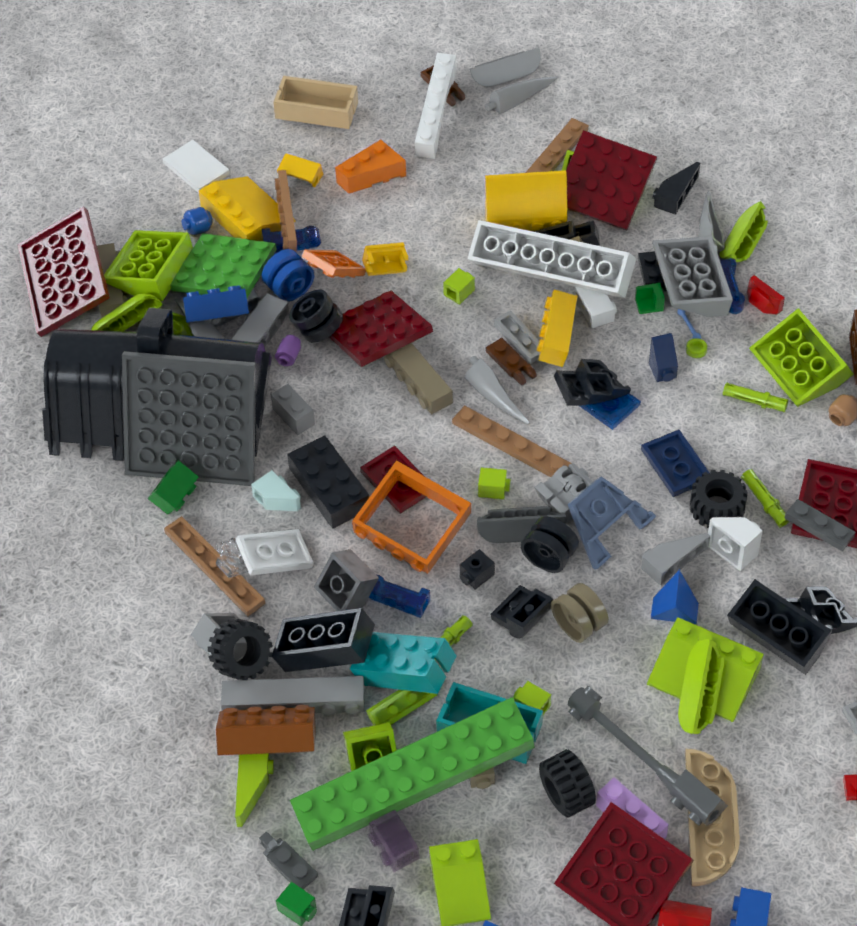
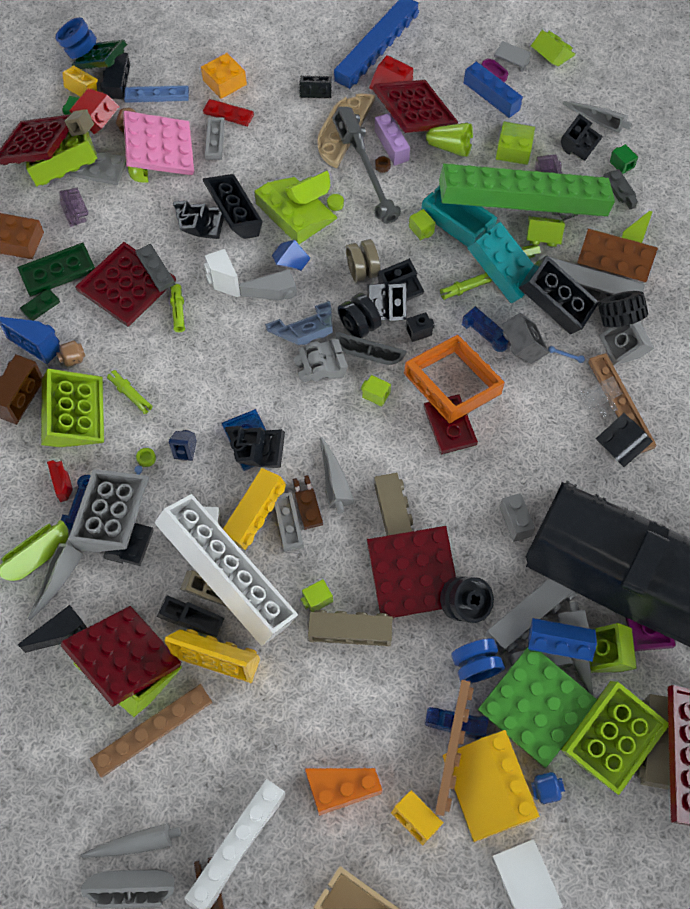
camera: 160 degrees left, 10 degrees up
(127, 313) = (652, 678): lime brick -> none
(173, 488) = (641, 476): green brick -> none
(190, 414) = (629, 501): dark grey plate -> none
(202, 515) = (624, 439): none -> black brick
(274, 552) = (571, 391): white tile -> none
(275, 494) = (555, 444): light aqua slope -> none
(276, 606) = (580, 359): none -> medium blue hinge
(288, 350) = (502, 584): medium lavender brick -> none
(328, 481) = (508, 438): black brick -> none
(333, 263) = (428, 657): orange plate -> none
(385, 259) = (373, 655): yellow hinge -> none
(415, 271) = (350, 628): none -> dark tan brick
(508, 441) = (344, 426): medium nougat plate -> none
(526, 573) = (389, 299): none -> brick
(547, 841) = (452, 138): none -> lime cone
(567, 783) = (426, 157): black tyre -> none
(627, 776) = (382, 164): none -> reddish brown tile
(649, 298) = (150, 514): green panel -> none
(660, 701) = (335, 202): none -> lime tile
(674, 461) = (225, 359): dark blue plate -> none
(720, 485) = (209, 302): black tyre -> none
(788, 874) = (315, 86): none -> black bracket

